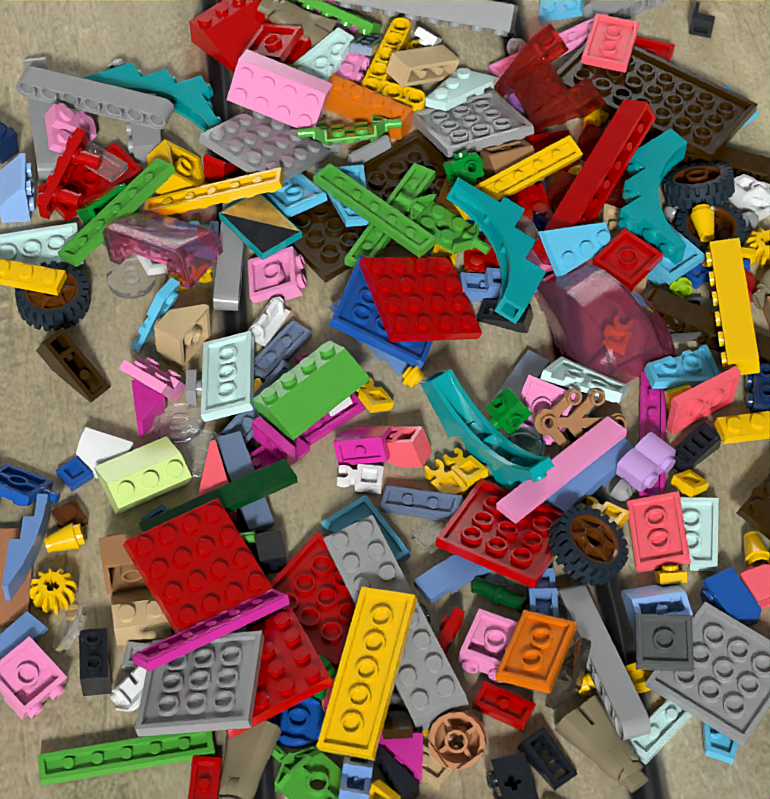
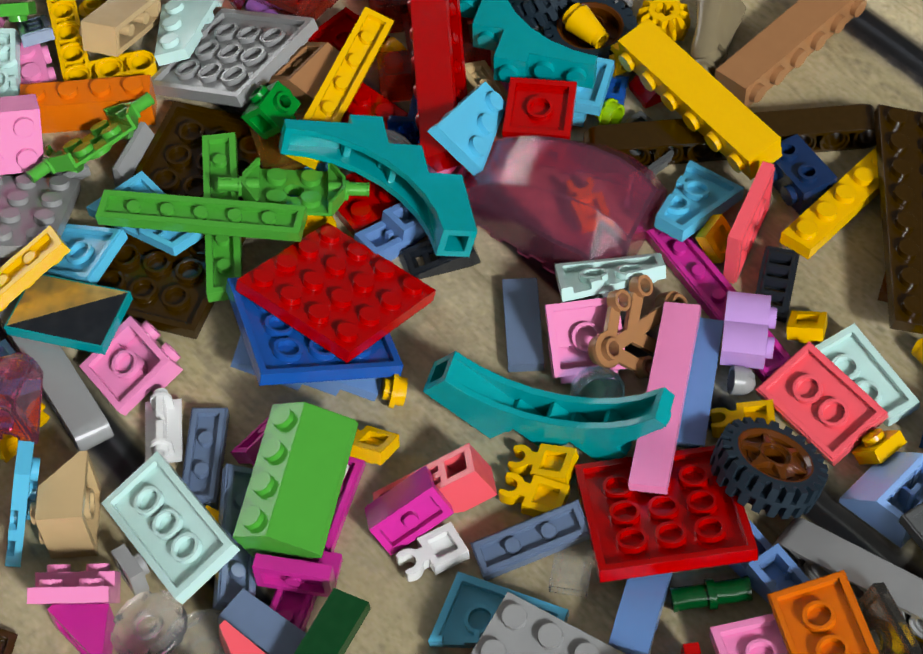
camera: 30 degrees left, 0 degrees up
(507, 411) = (553, 363): green brick -> none

